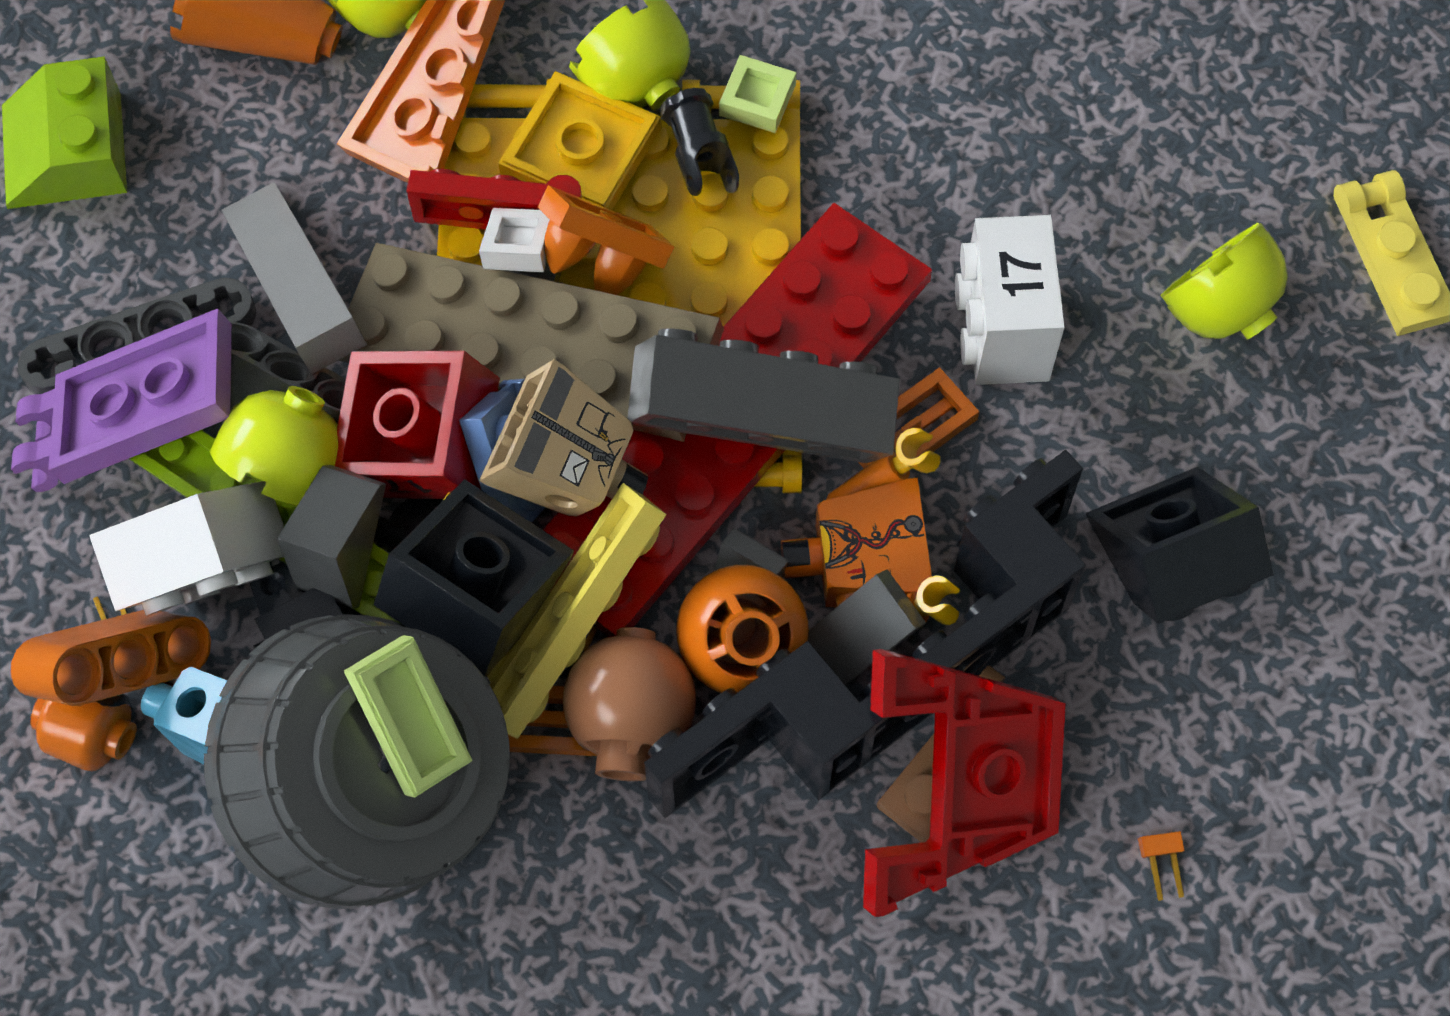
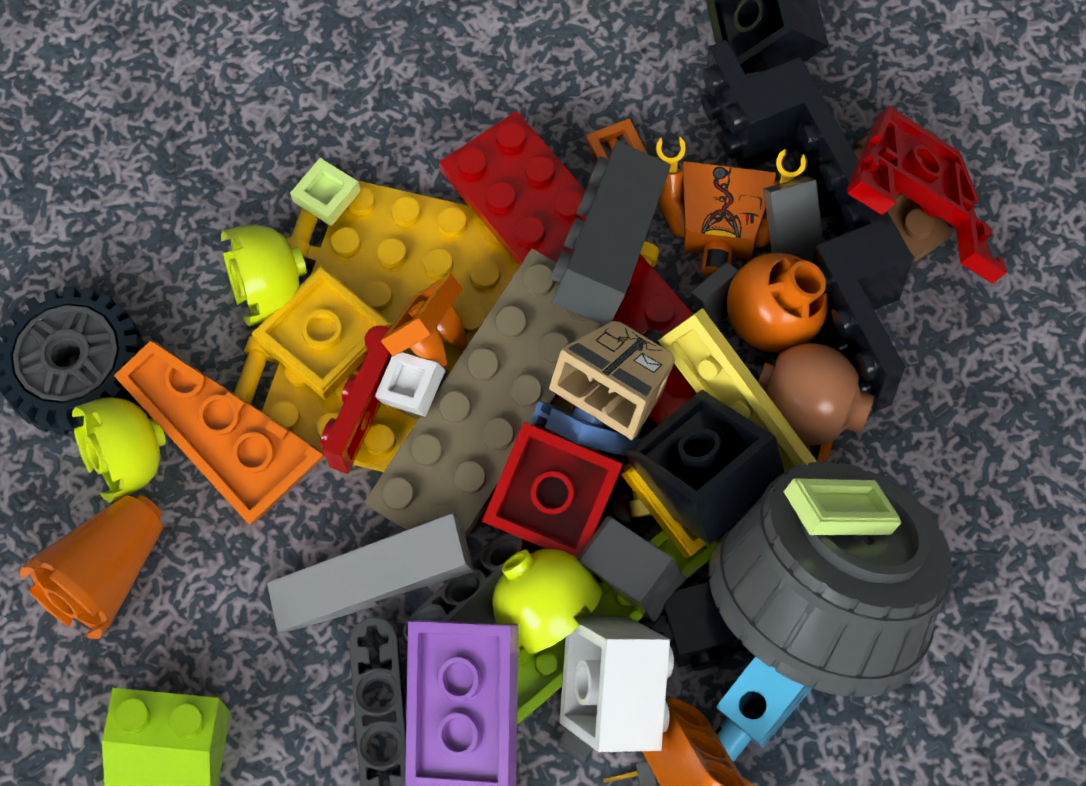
camera: 70 degrees left, 0 degrees up
(698, 140) = (358, 241): black piece -> none
(1010, 300) = (559, 64): white brick -> none
(1163, 845) = (979, 95): orange piece -> none

